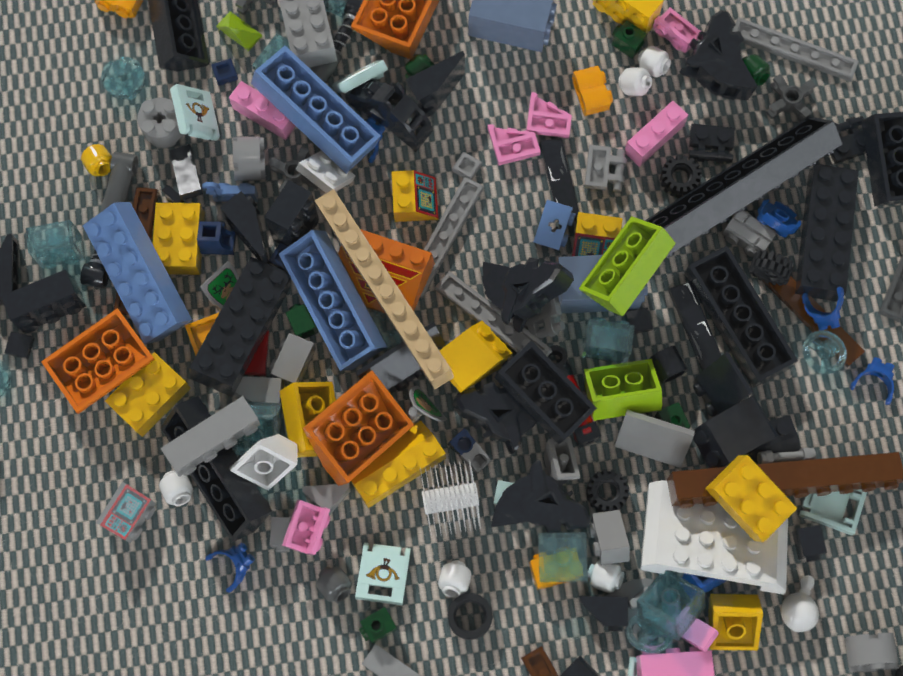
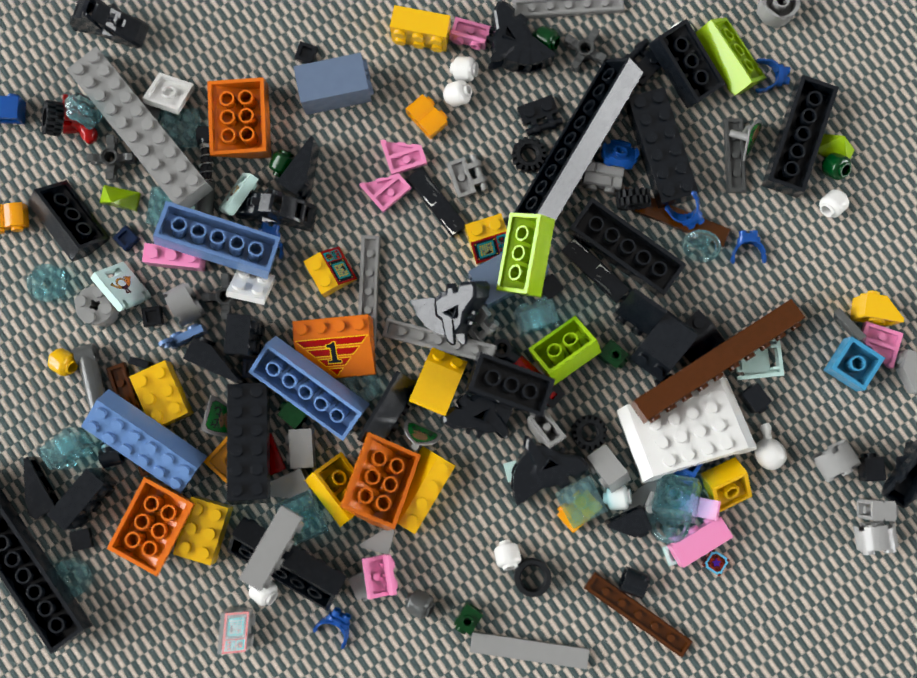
camera: 25 degrees left, 10 degrees up
(186, 172) = (139, 338): tile -> none
(210, 159) = (152, 316): none -> black tile
(215, 238) = (191, 380): dark blue brick -> none
(267, 461) = (325, 542): white slope -> none
(385, 289) = (345, 363): tan brick -> none
(385, 569) = (451, 574): light aqua container -> none
(452, 498) = (475, 501): white piece -> none
(466, 166) = (358, 225): light grey tile -> none
(470, 450) = (471, 452): leg -> none
(552, 212) = (445, 233): medium blue brick -> none
(628, 39) = (435, 59): dark green brick -> none
(654, 438) = (605, 376): light grey tile -> none
(656, 133) = (493, 128): bright pink brick -> none
(668, 364) = (589, 312): black piece -> none
(751, 498) = (702, 393): yellow brick -> none
(770, 457) = (698, 351): light grey bar -> none

